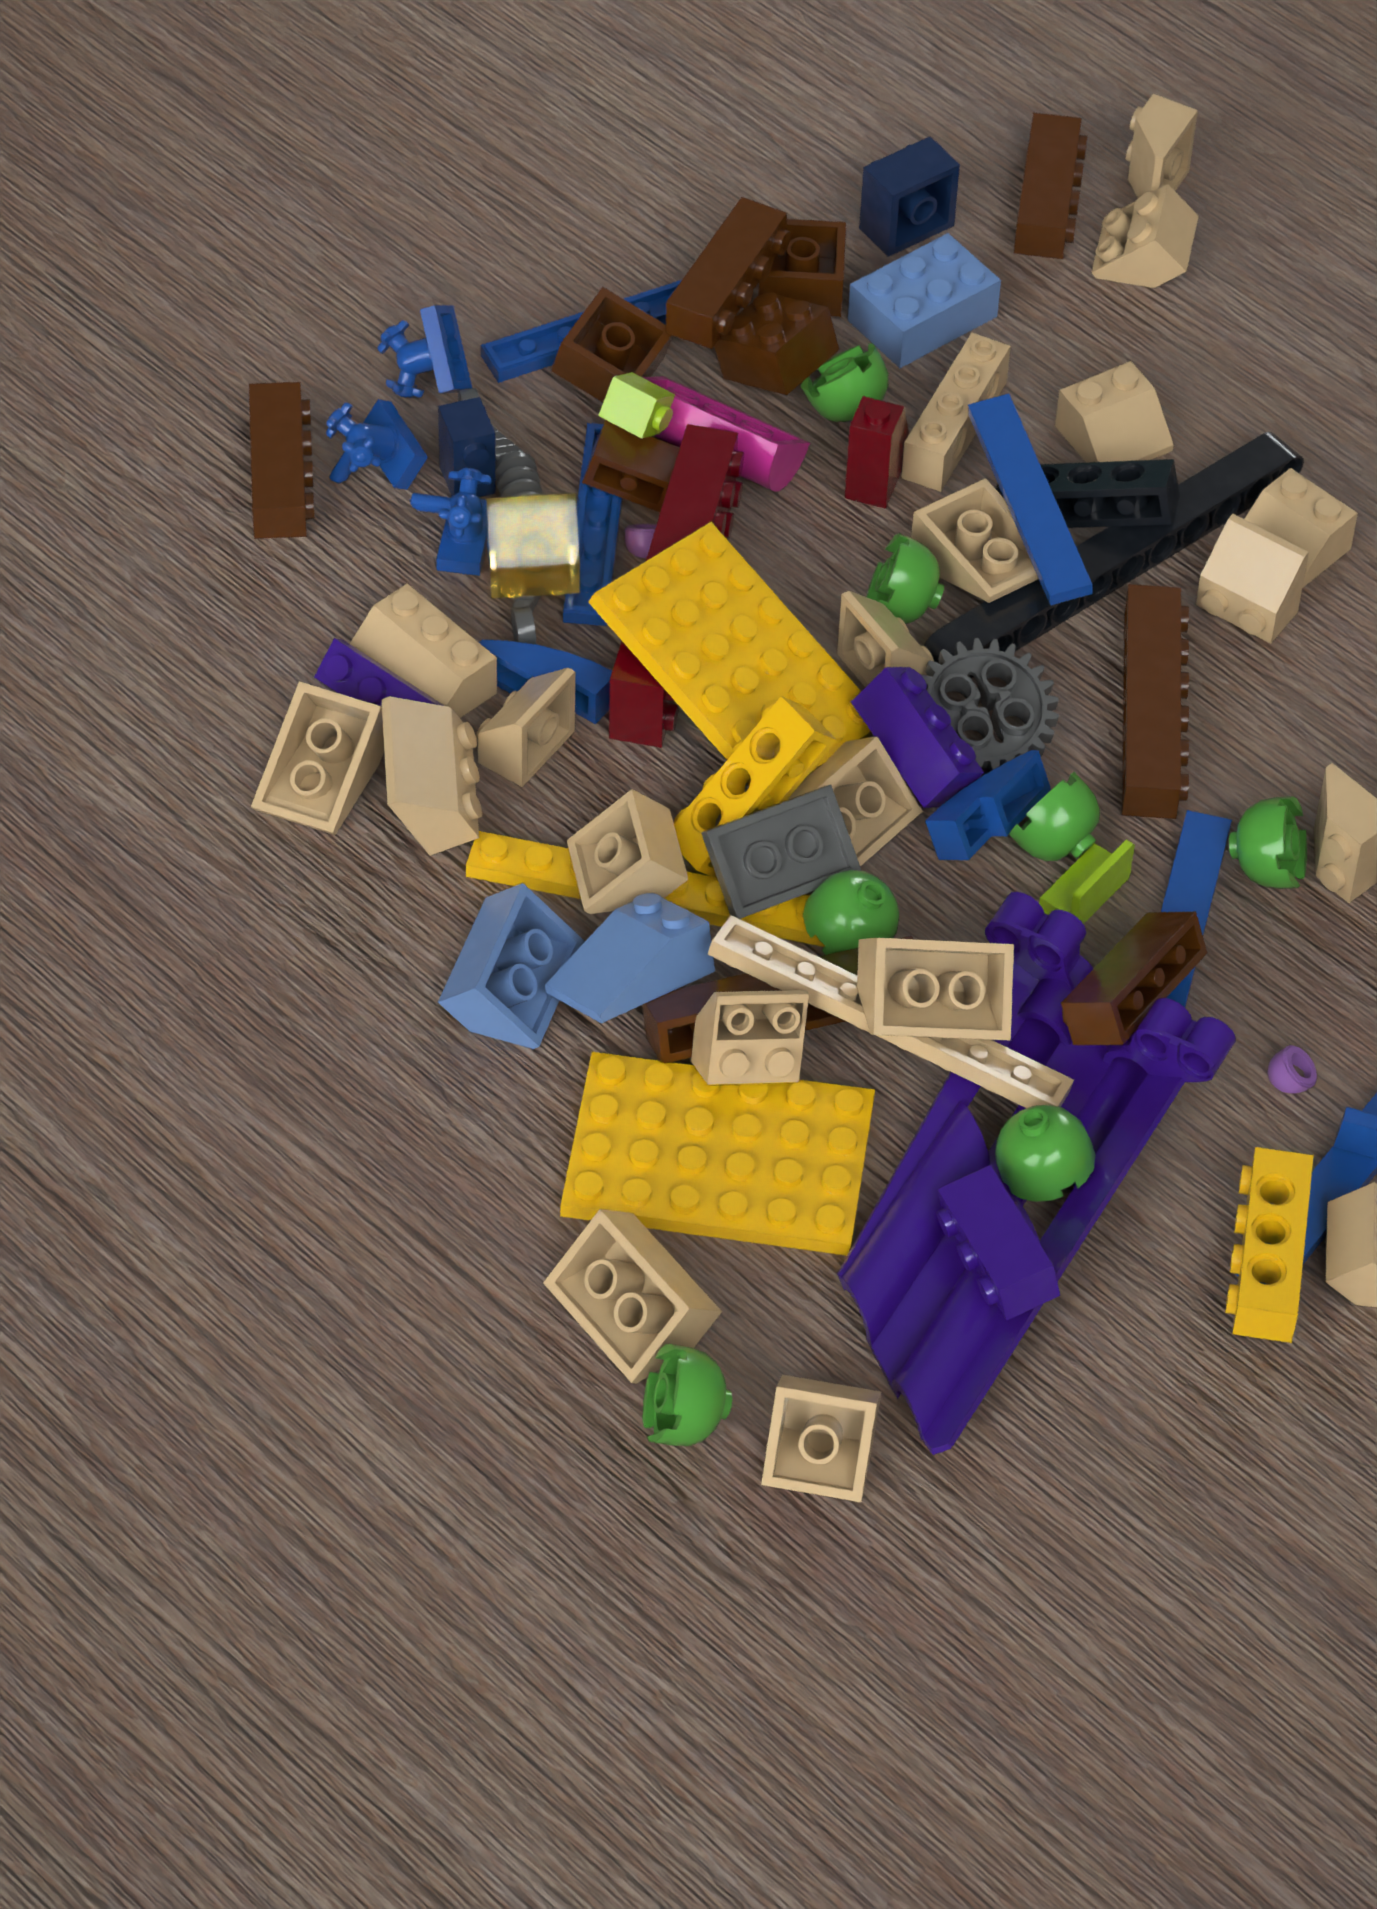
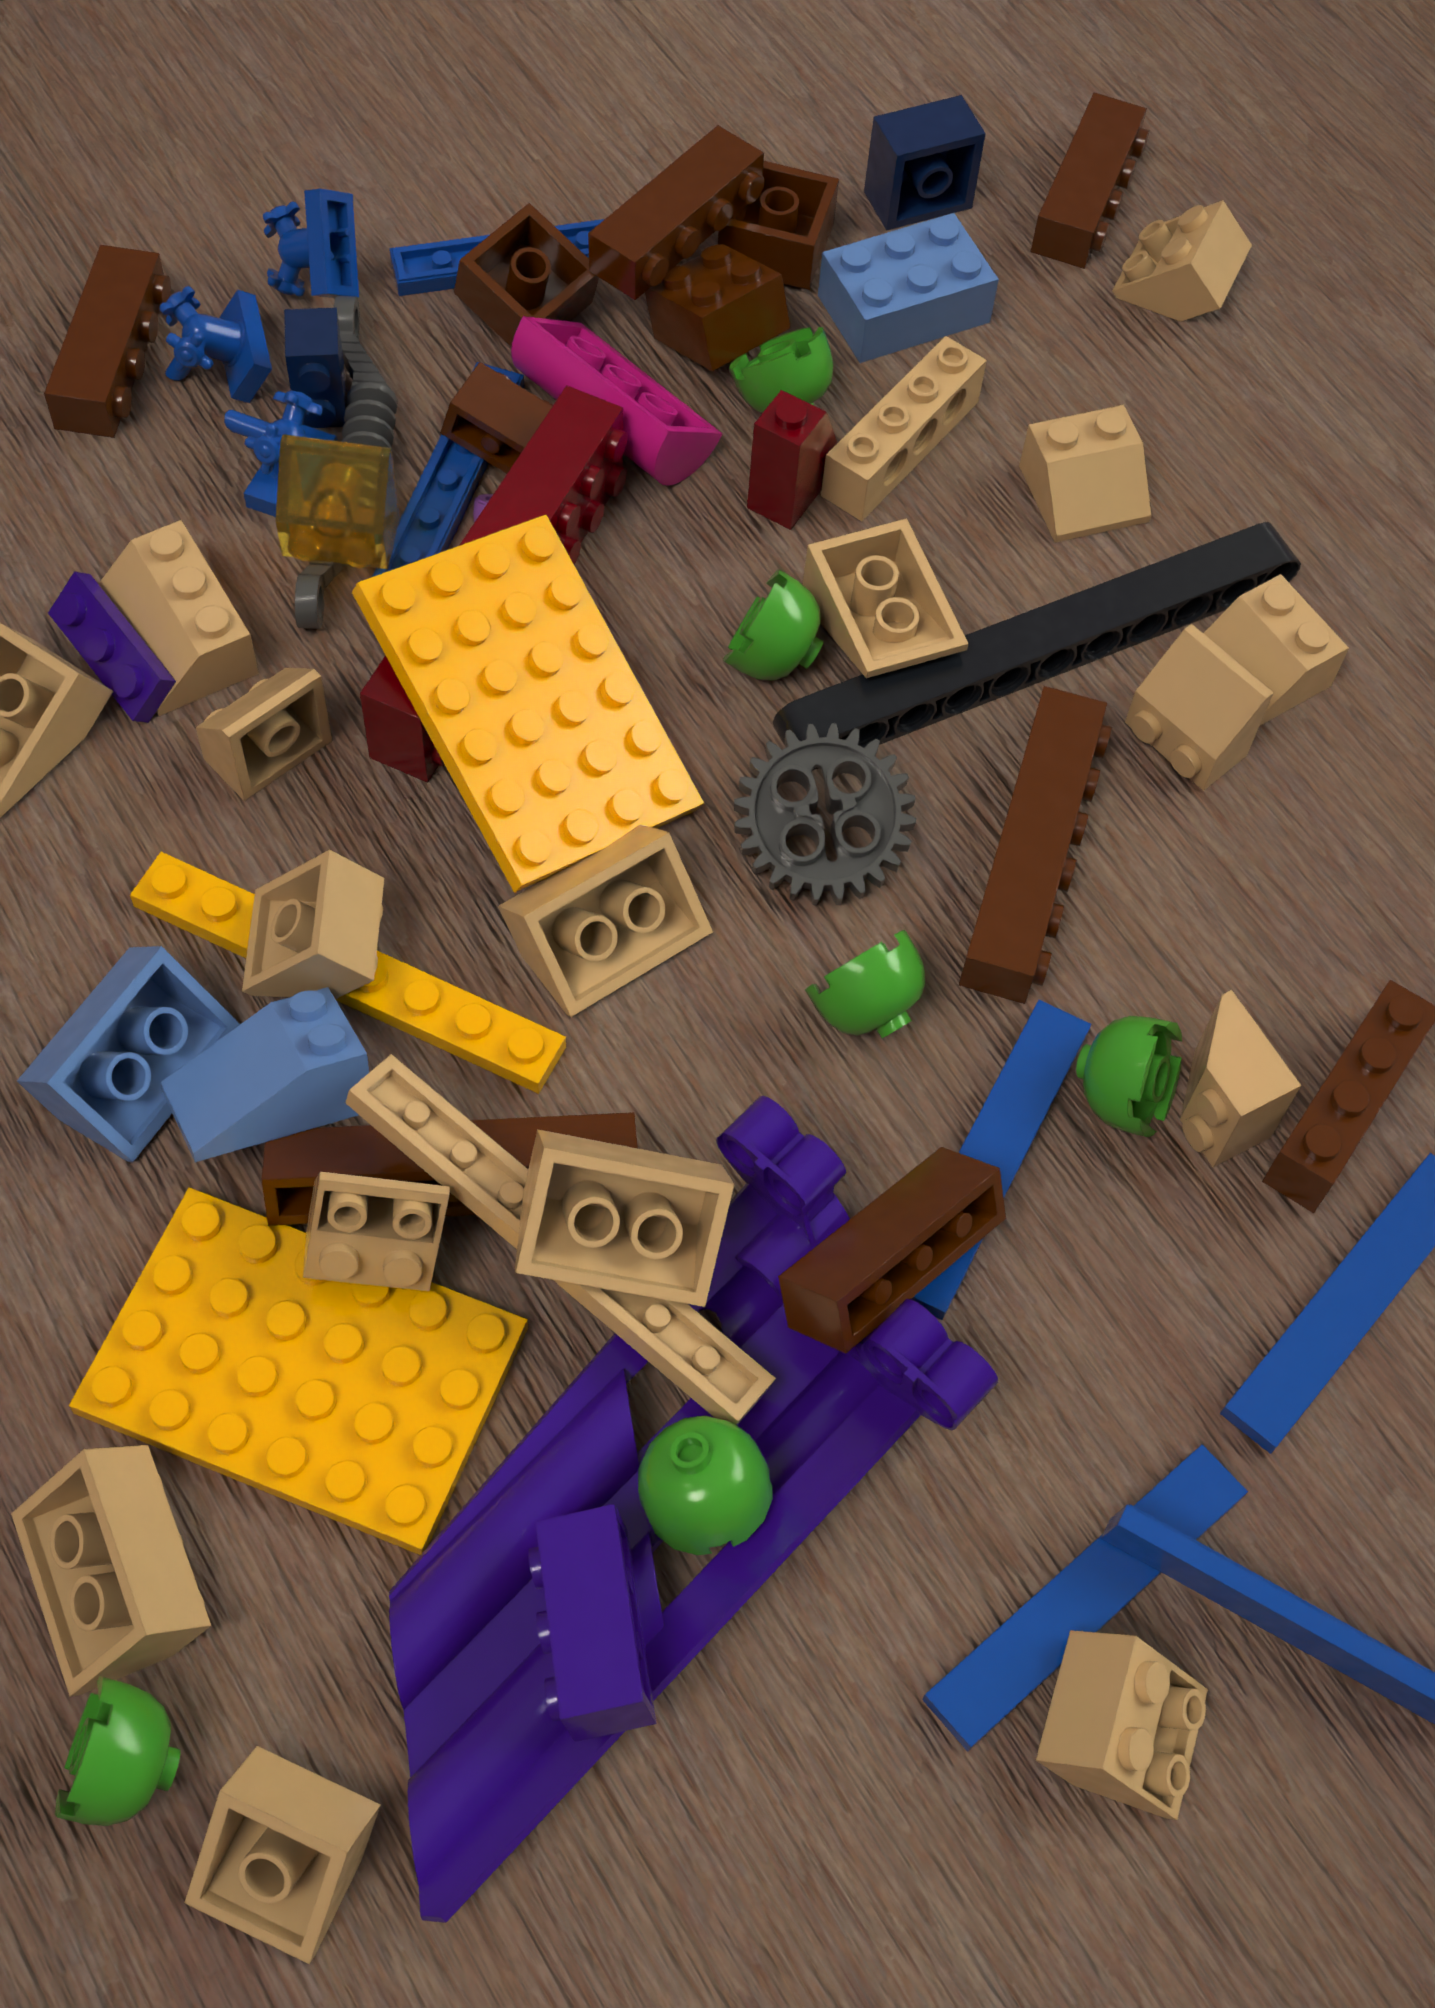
camera: 10 degrees right, 10 degrees up
(431, 772) = (115, 767): tan slope -> none
(522, 661) = (289, 644): blue slope -> none
(637, 405) = (520, 351): lime brick -> none
(772, 781) = (488, 871): yellow brick -> none
(780, 851) = (500, 967): dark grey plate -> none
(849, 909) = (570, 1065): bright green cylinder -> none
(876, 639) = (722, 710): tan slope -> none
(917, 735) = (724, 839): dark purple brick -> none
(988, 807) = (789, 948): blue slope -> none
(1030, 499) = (950, 559): blue tile -> none
(1090, 881) = (885, 1077): lime panel -> none
(1114, 492) = (1030, 561): black brick -> none
(1160, 144) = (1230, 153): tan slope -> none
(1270, 1308) = (956, 1795): yellow brick -> none
(1284, 1076) = (1063, 1402): medium lavender piece -> none

